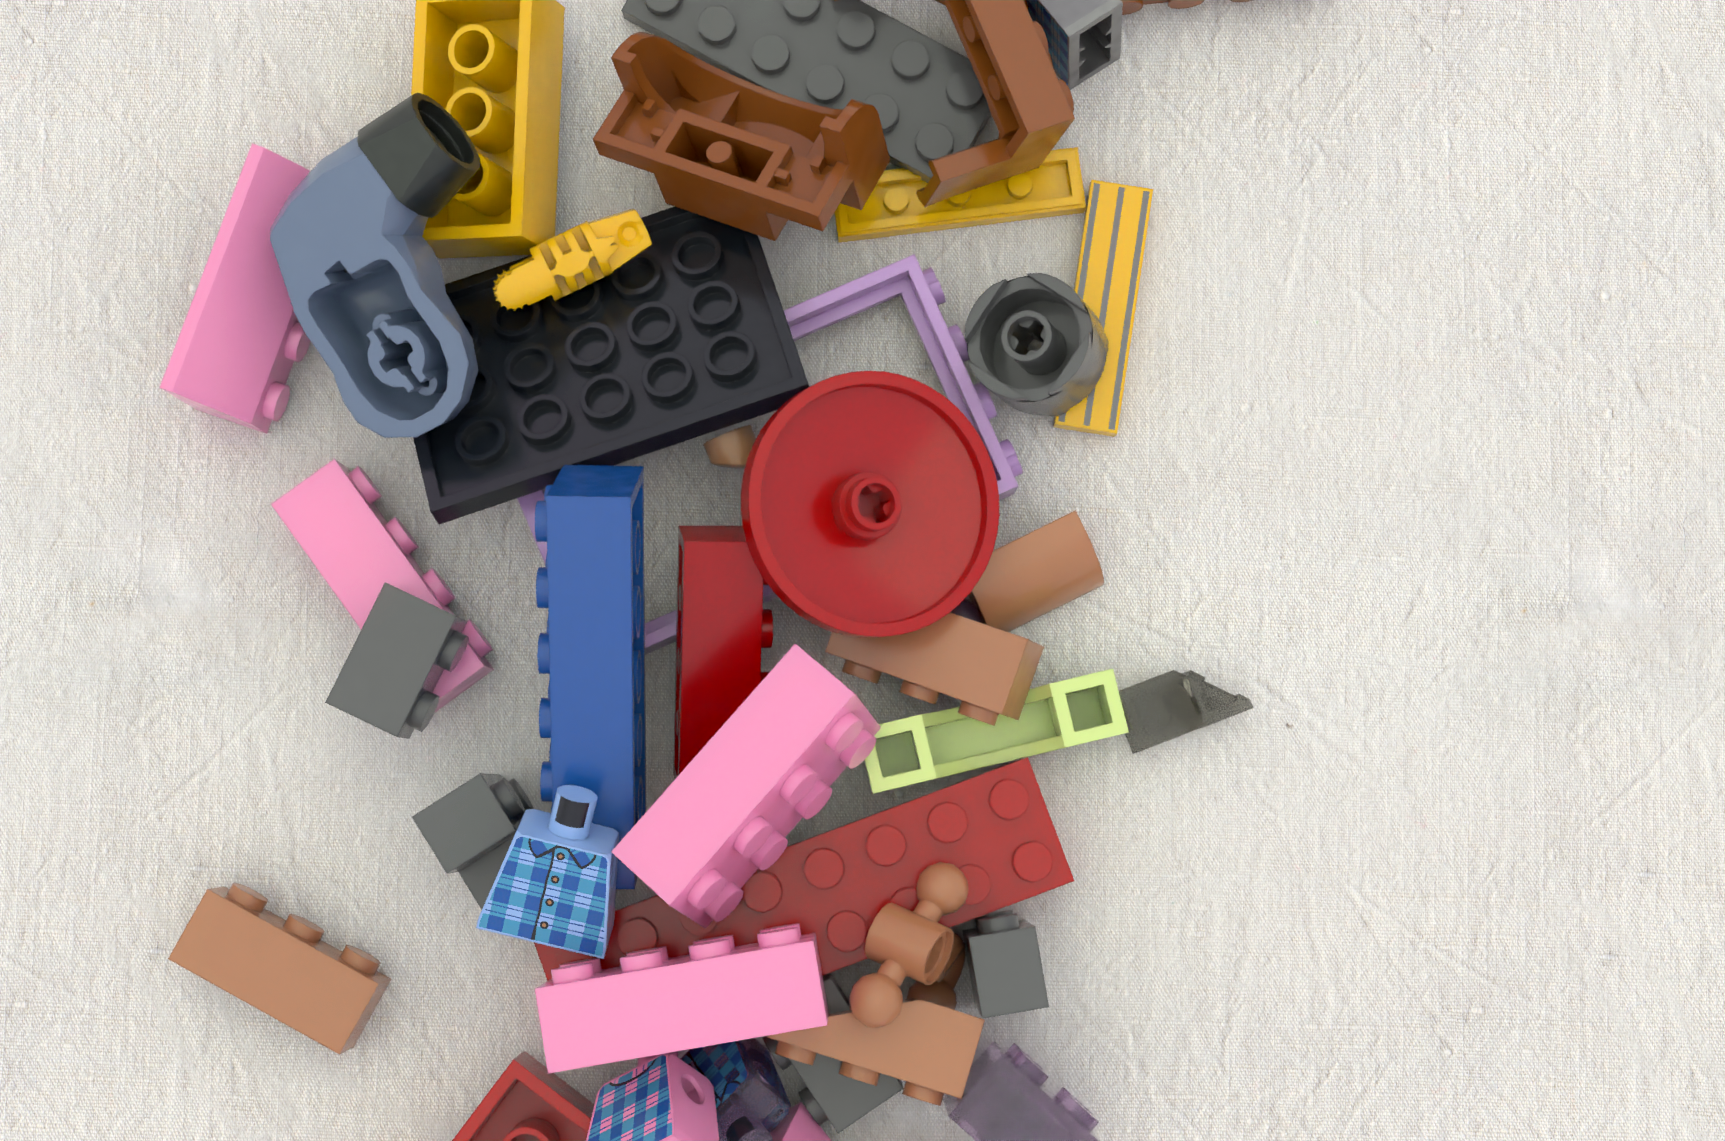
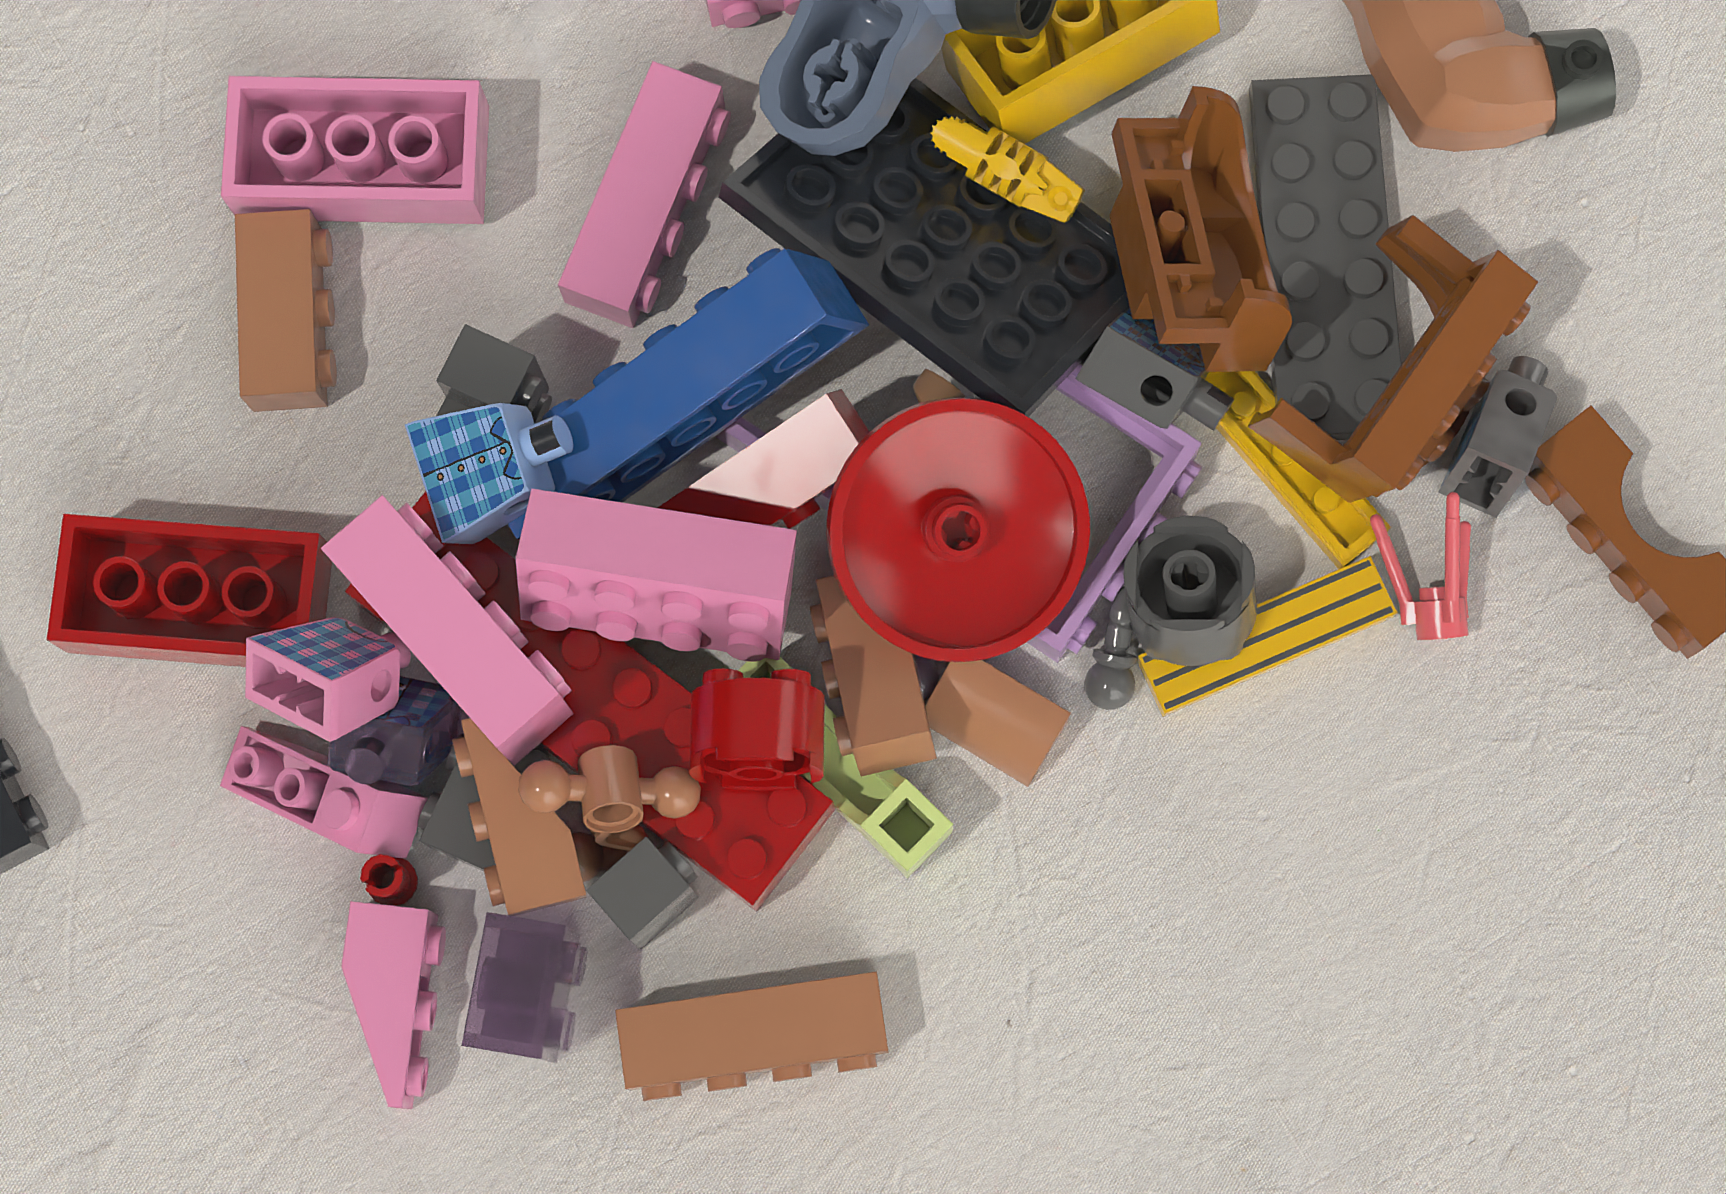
camera: 65 degrees right, 5 degrees down
(176, 814) = (357, 148): none -> bright pink brick
(398, 663) = (585, 238): dark grey brick -> none
(829, 266) = (1151, 376): none -> dark grey torso
(940, 785) = (757, 729): none -> red brick
(1058, 460) = (1110, 681): none -> dark grey bar
(1172, 150) = (1444, 608): none -> coral plant
(1173, 947) = (751, 1033): none -> nougat brick
(1175, 706) = (959, 909): clear smoke slope -> none

